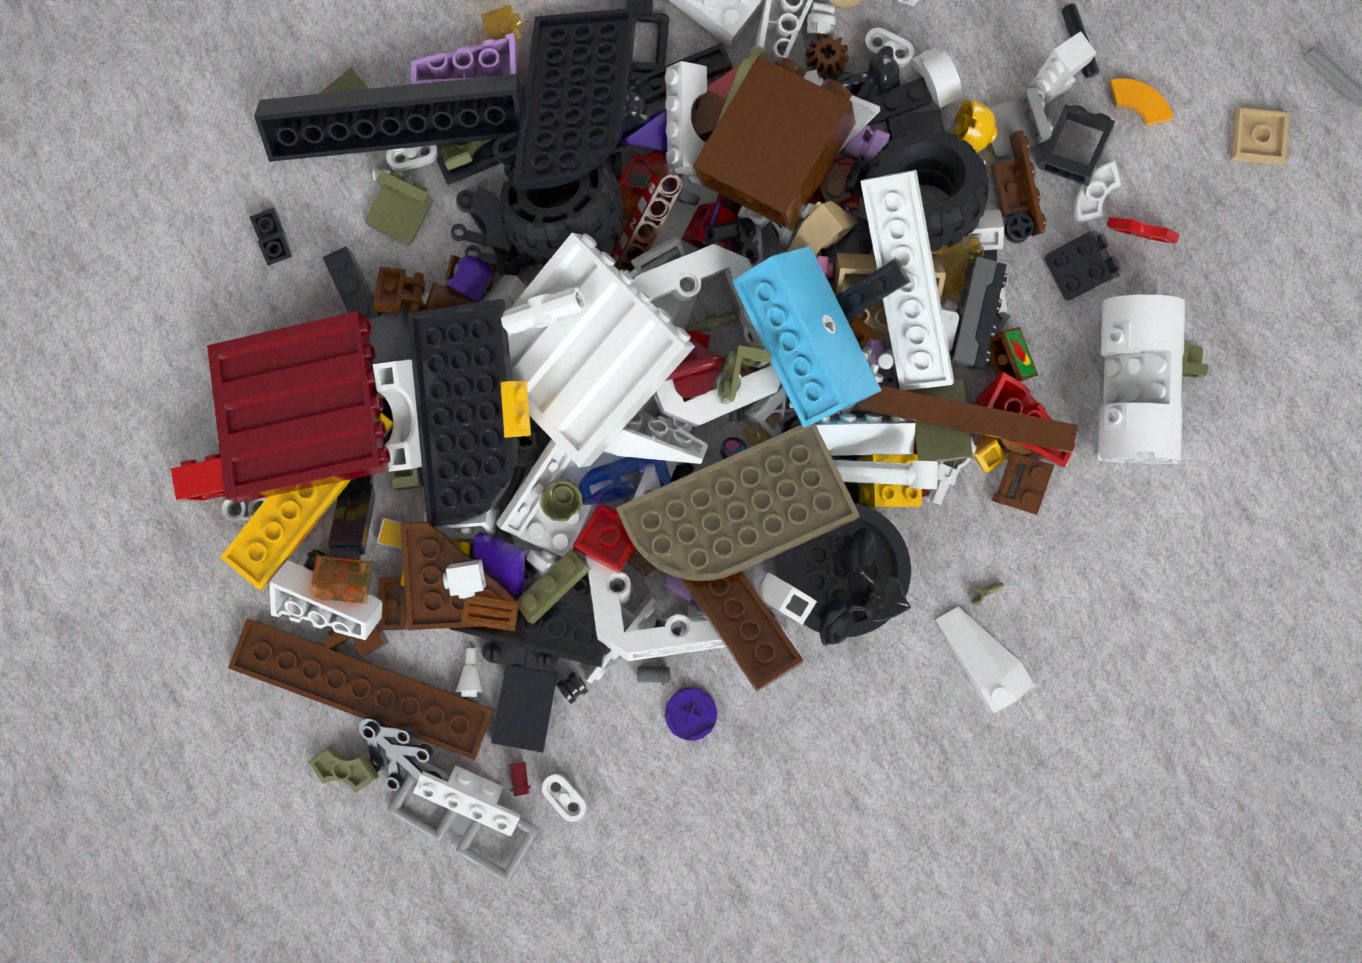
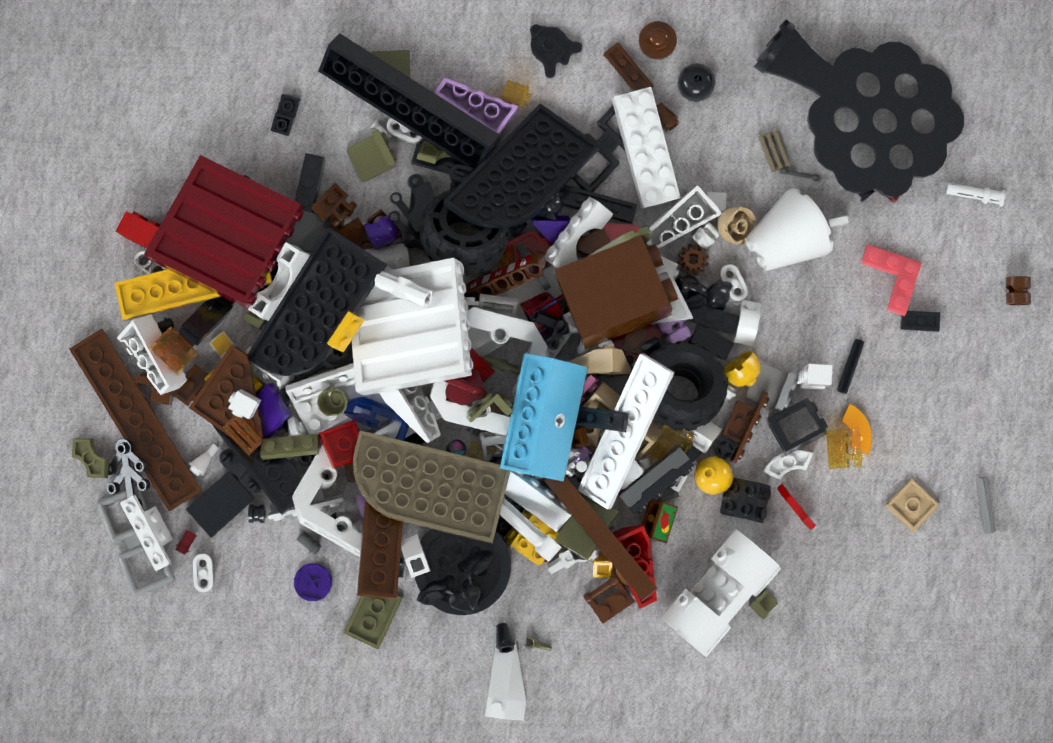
camera: 35 degrees right, 0 degrees up
(787, 707) = (372, 619): none -> olive tile
(946, 613) = (504, 639): none -> black cone
(1030, 265) = (713, 475): none -> yellow cylinder
(1138, 135) = (838, 448): none -> clear yellow plate

